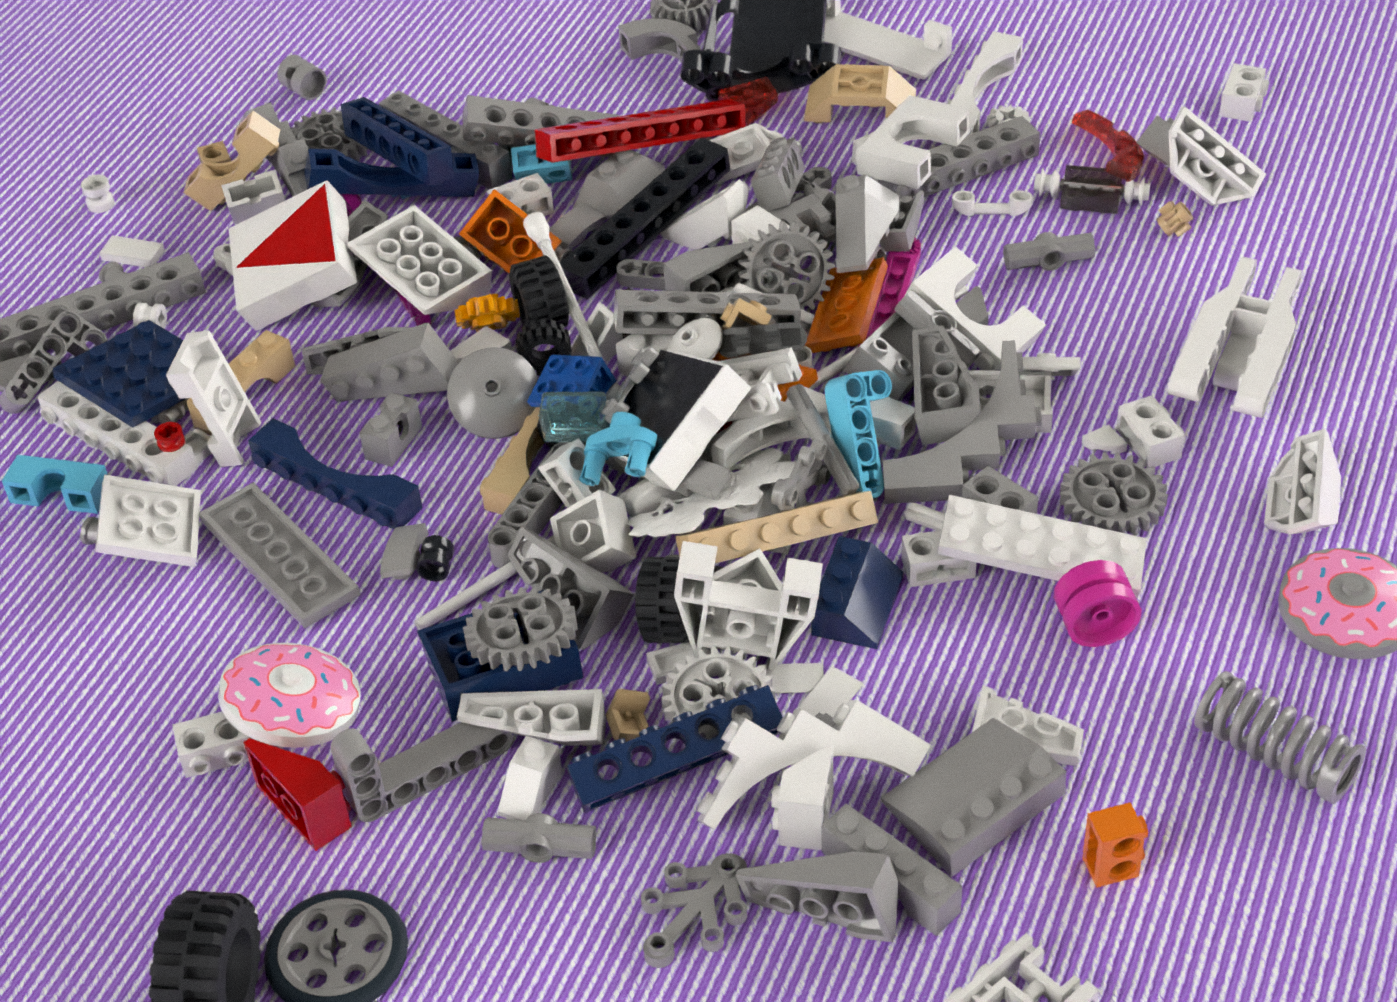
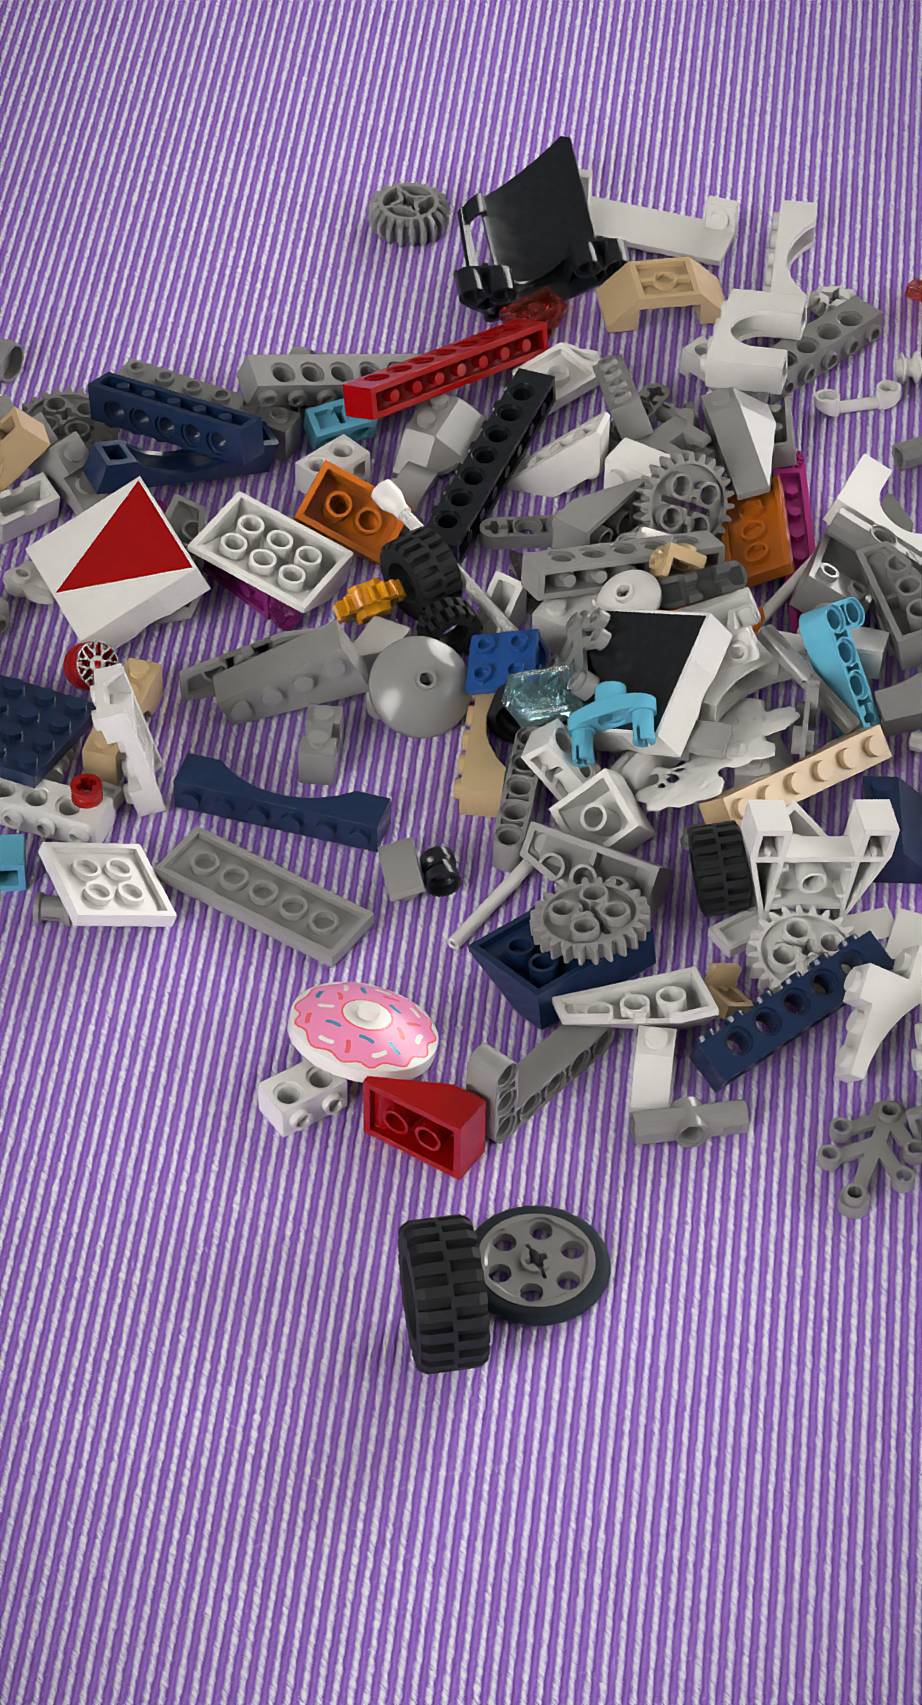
camera: 20 degrees left, 0 degrees up
(238, 331) = (84, 659): none -> red wheel
(657, 37) = (402, 252): light grey arch -> none

